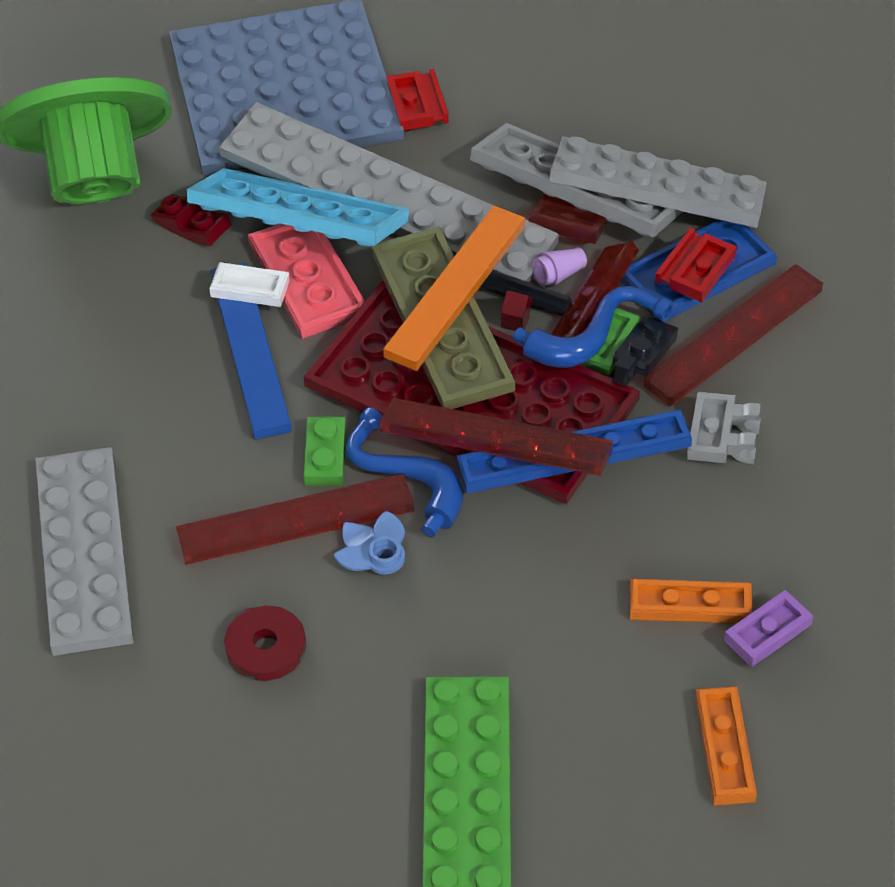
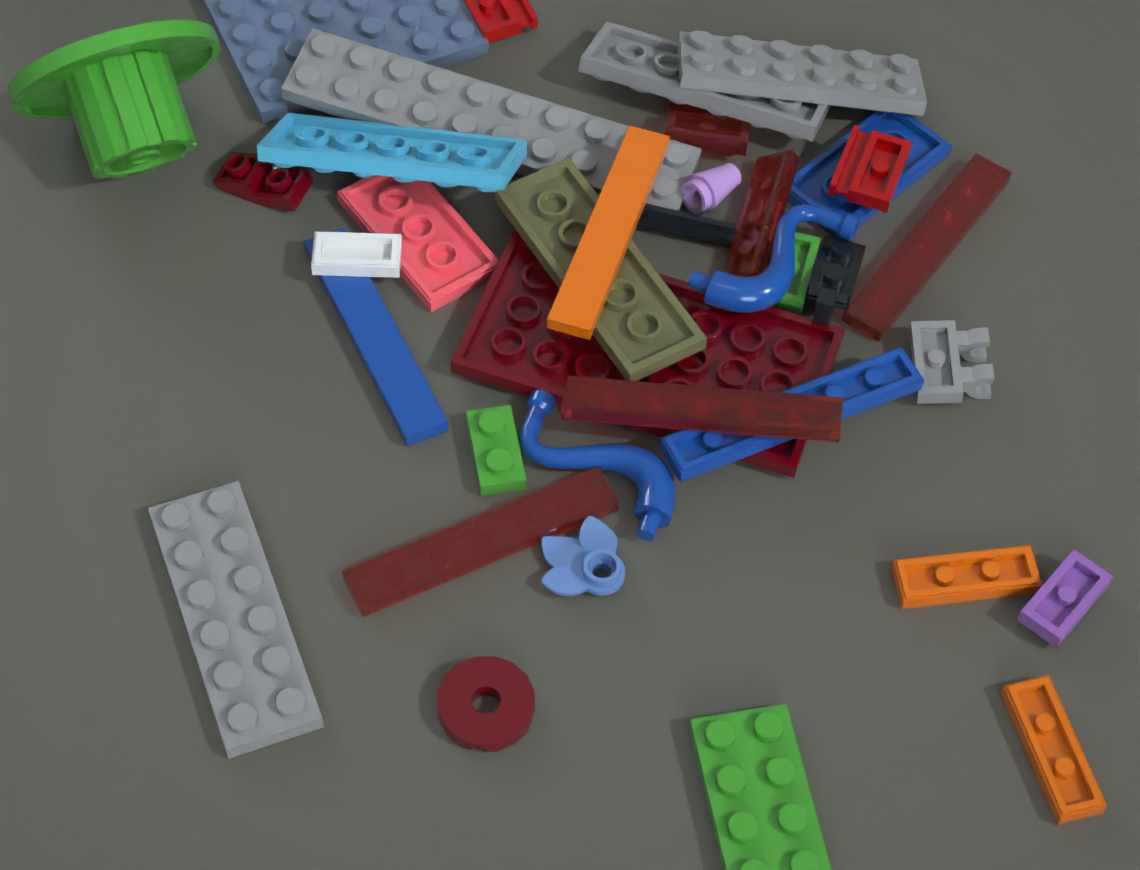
camera: 15 degrees left, 5 degrees up
(515, 311) = (676, 249): dark red piece -> none

